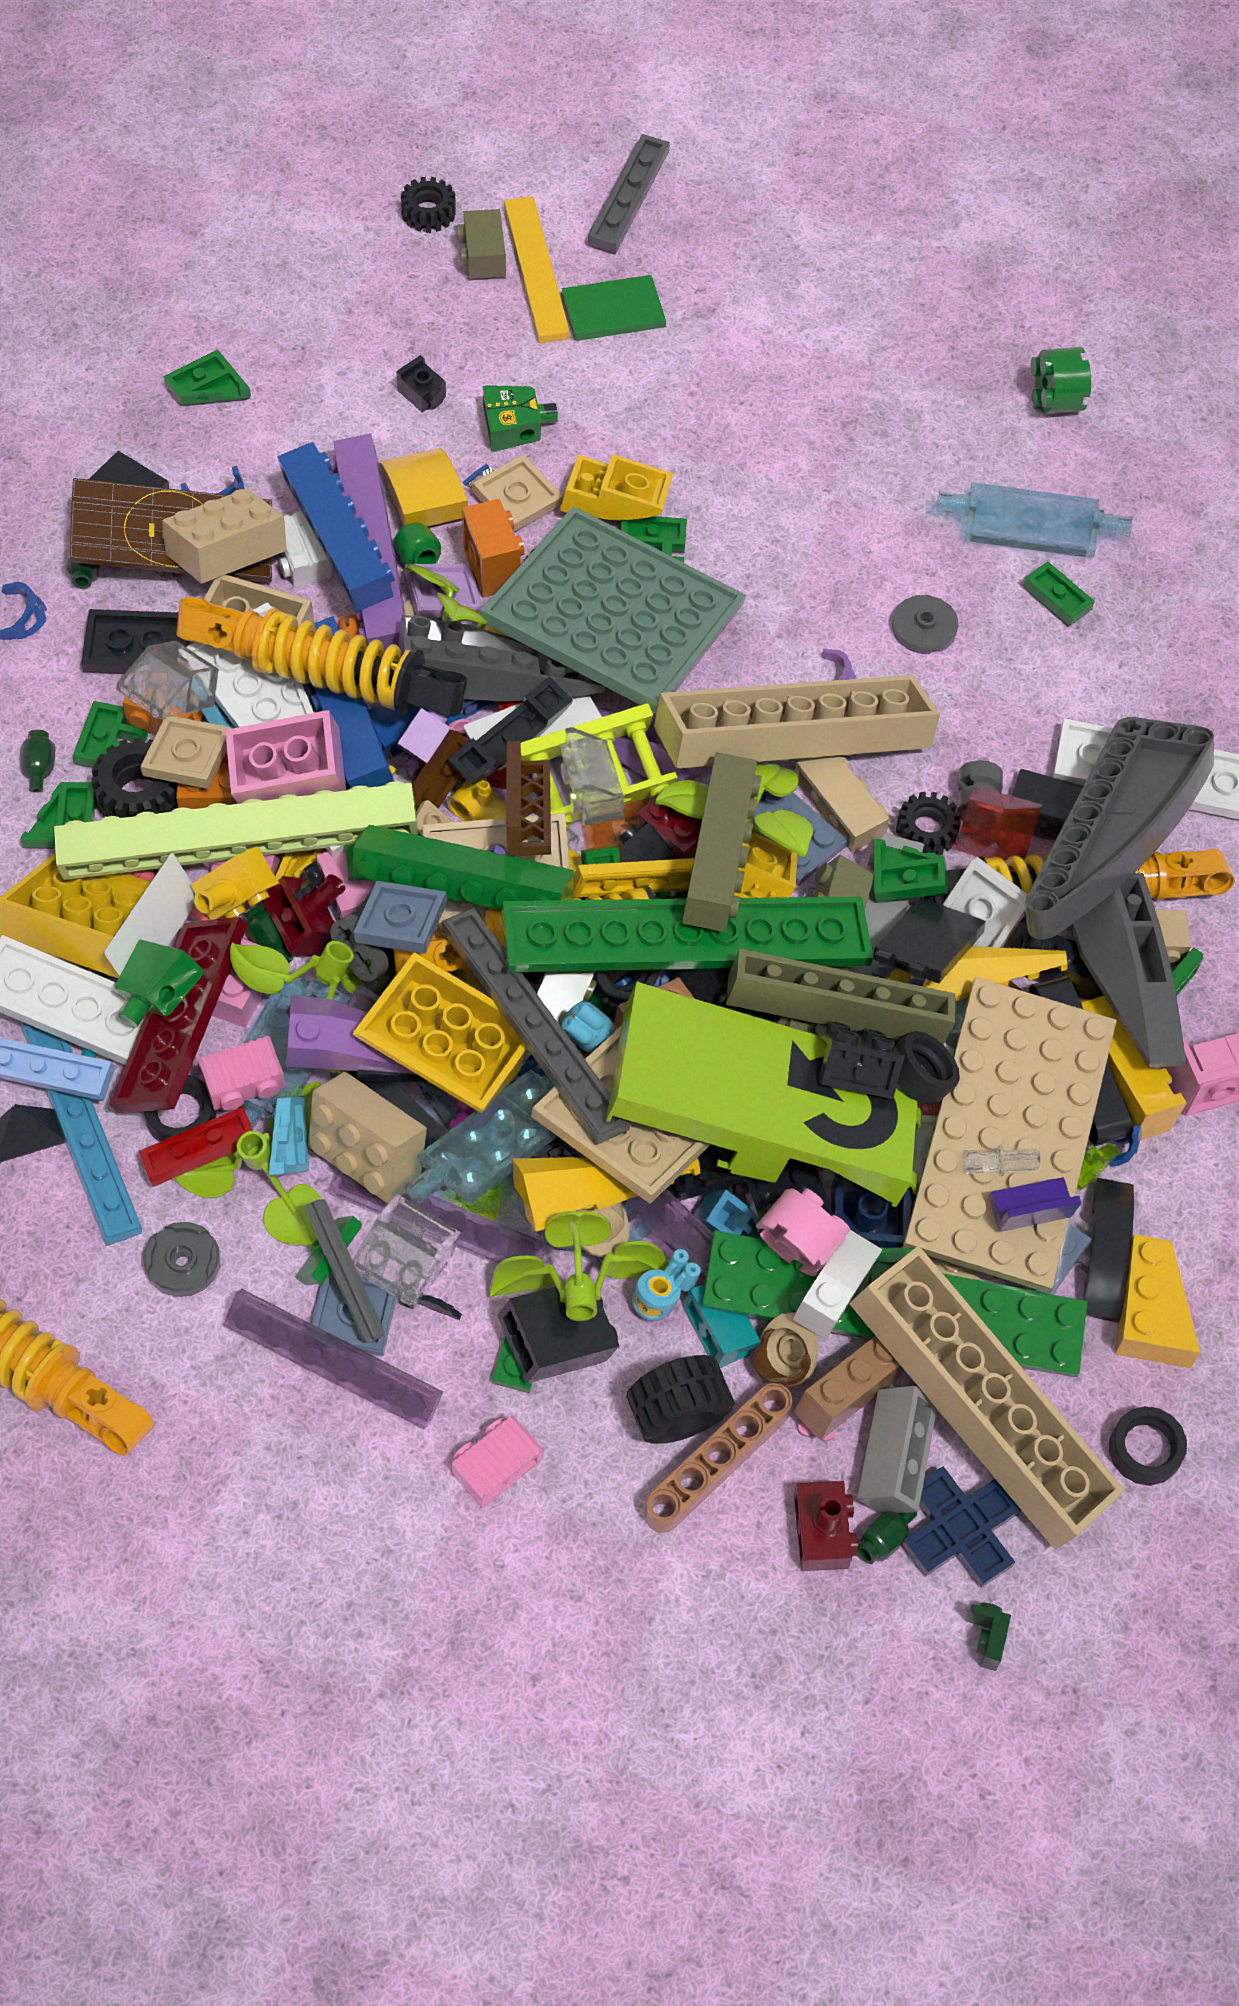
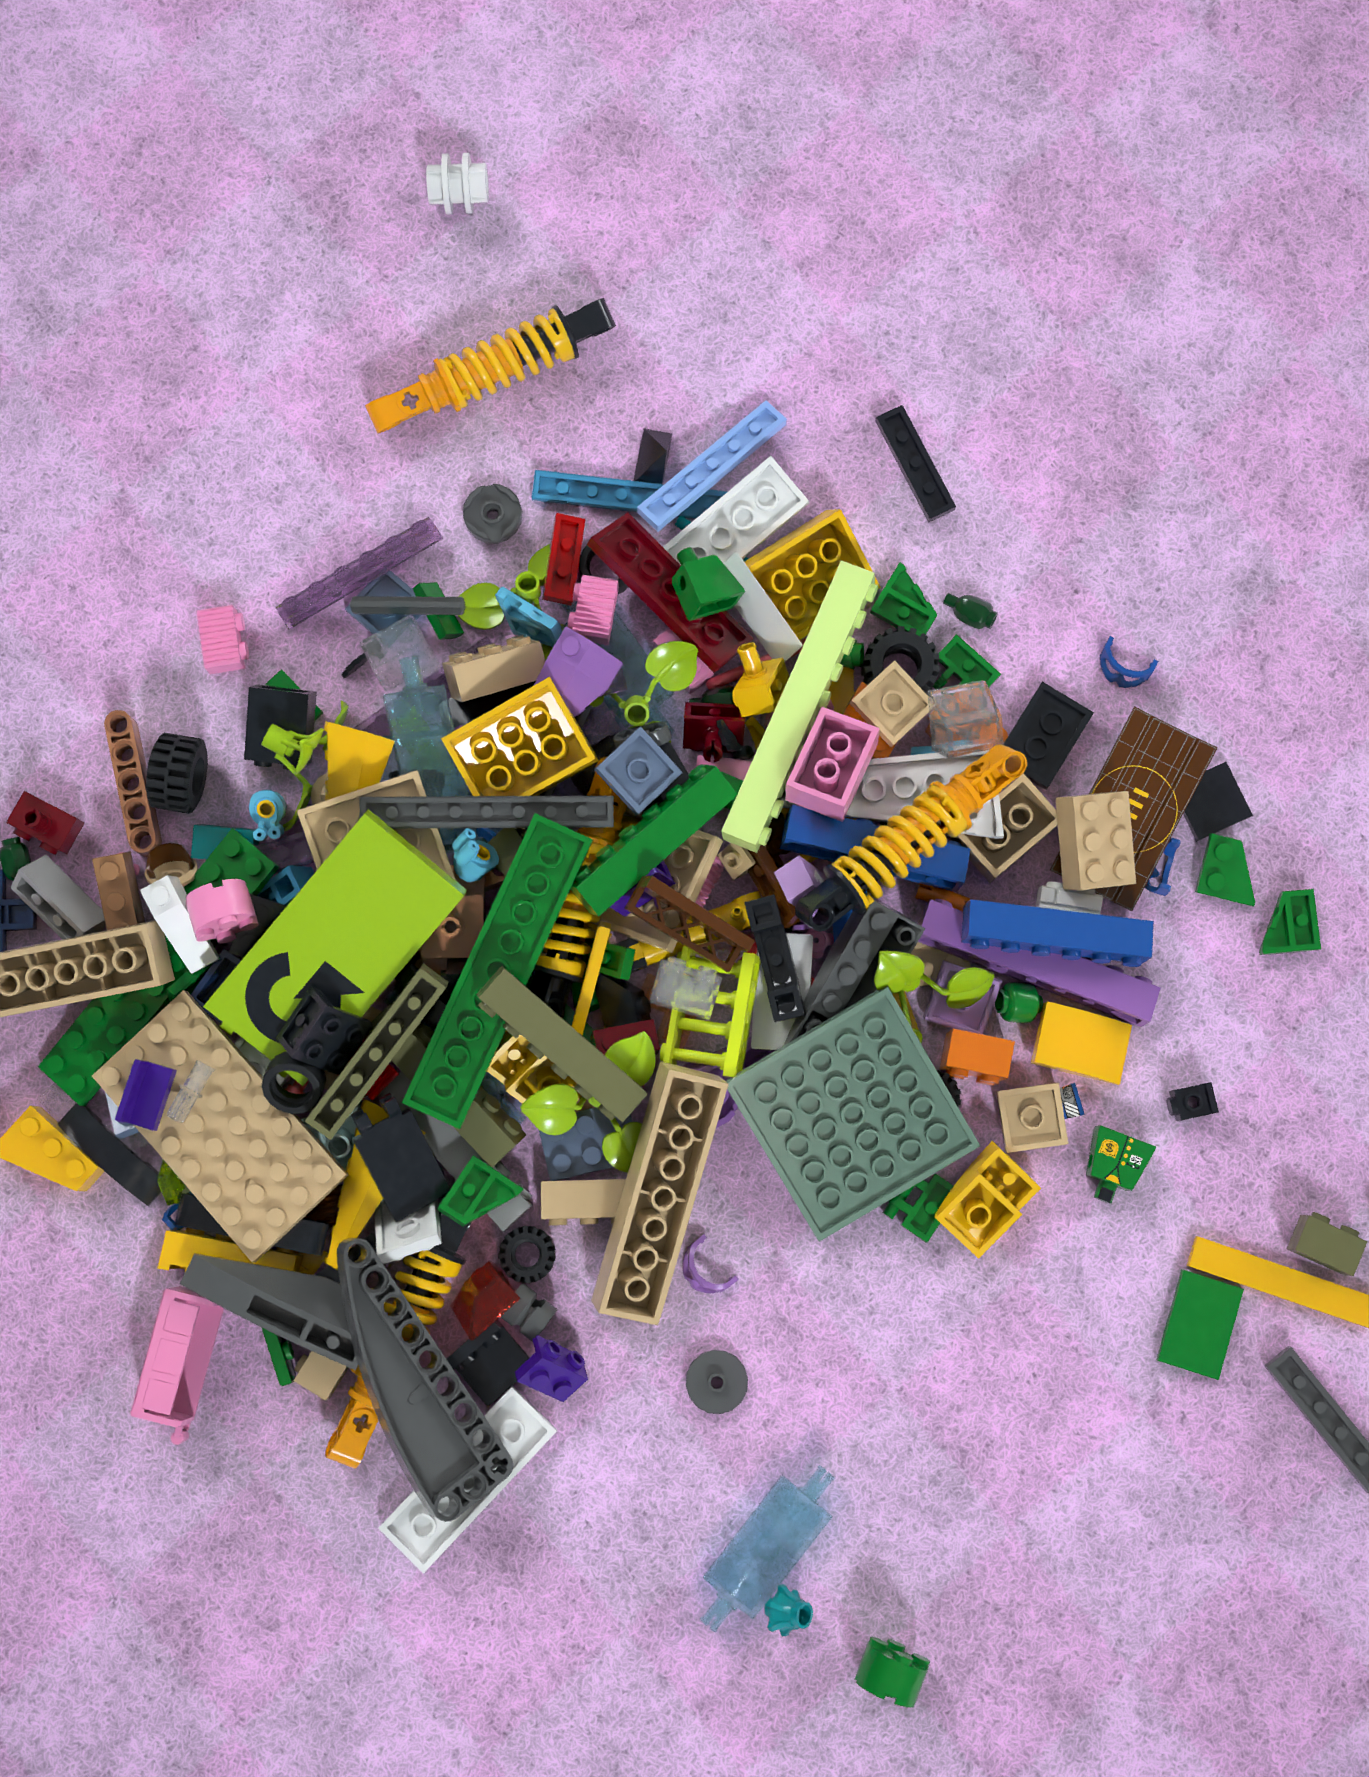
camera: 125 degrees right, 20 degrees up
(186, 449) = (1225, 871): none -> green wing
(1008, 735) = (553, 1370): none -> dark purple bracket
(1058, 593) = (681, 1516): green plate -> none
(1072, 475) = (787, 1611): none -> teal rock

